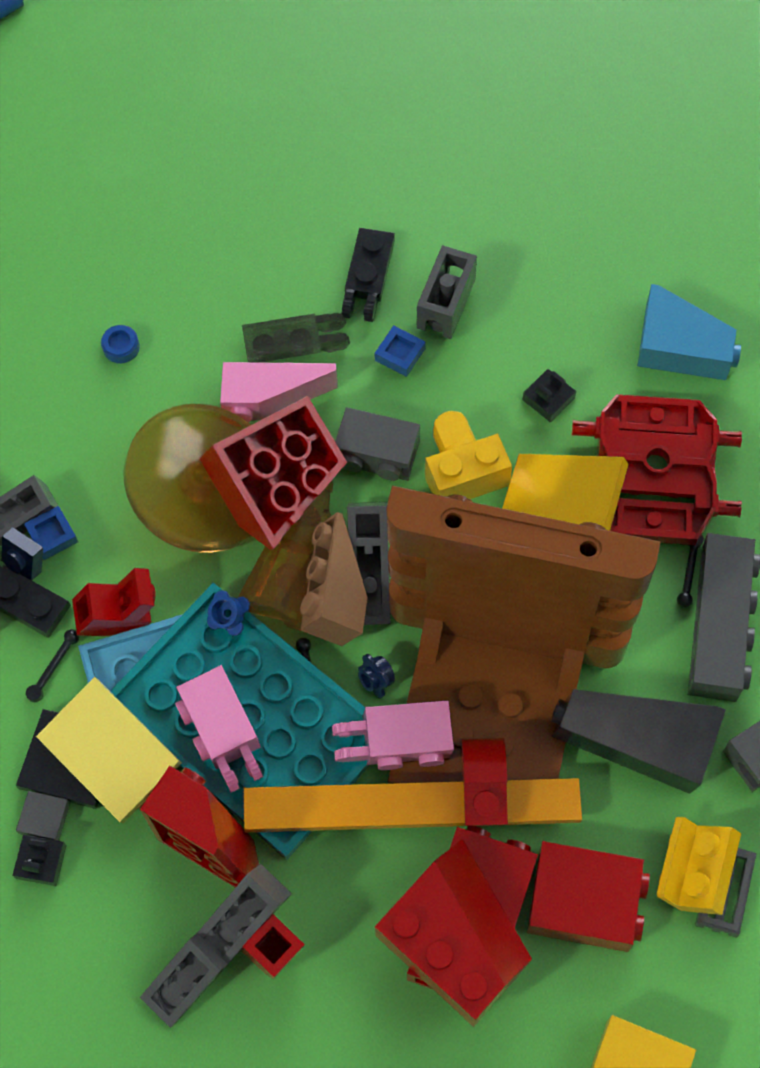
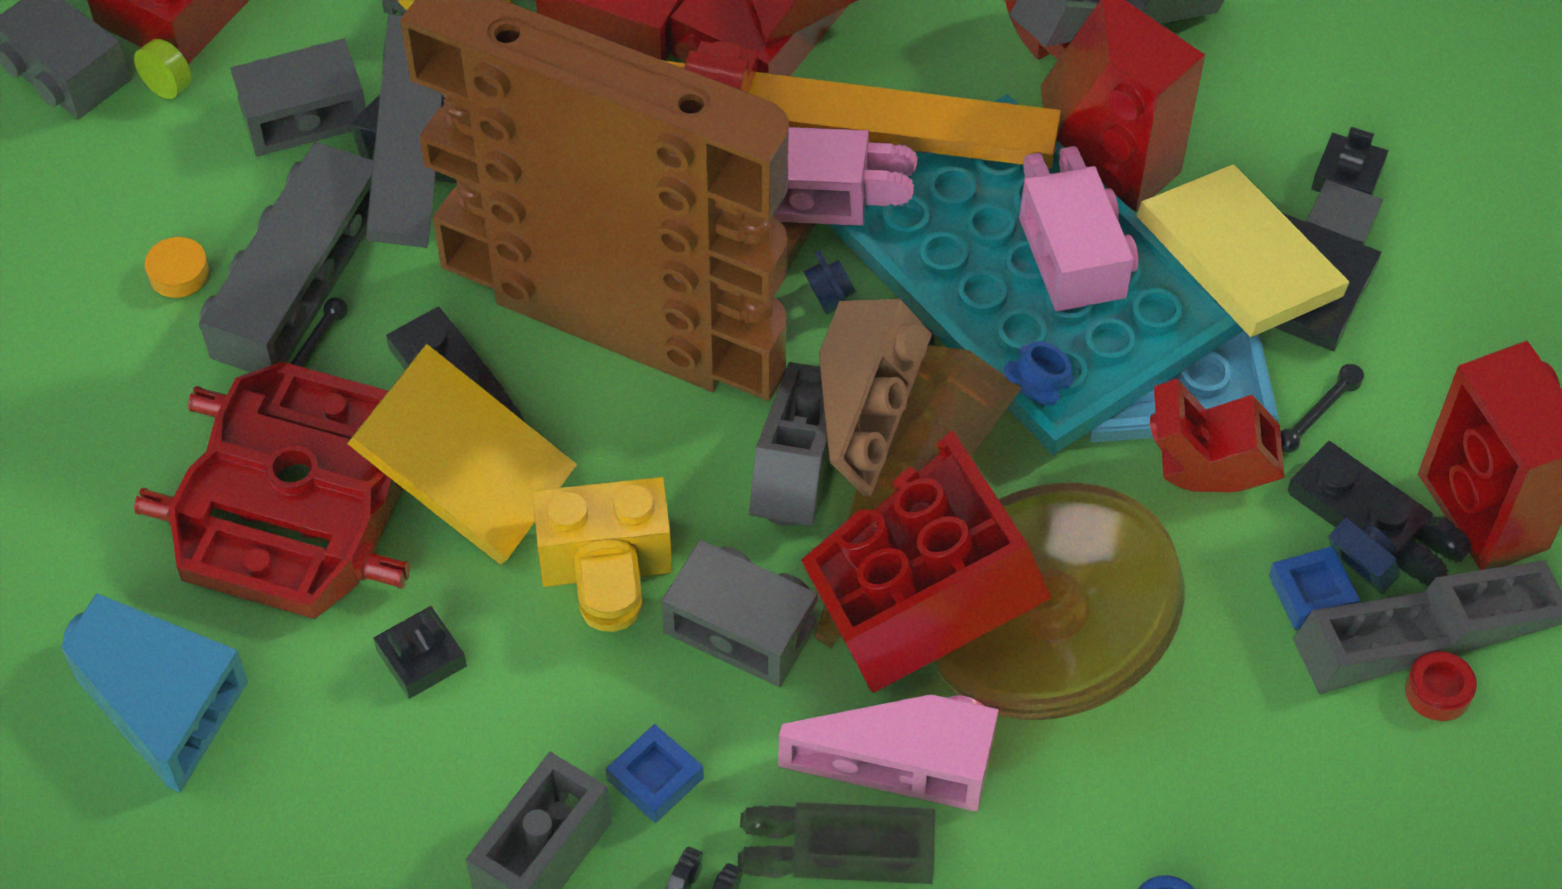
camera: 170 degrees left, 10 degrees down
(681, 696) = (399, 181): none -> dark grey slope

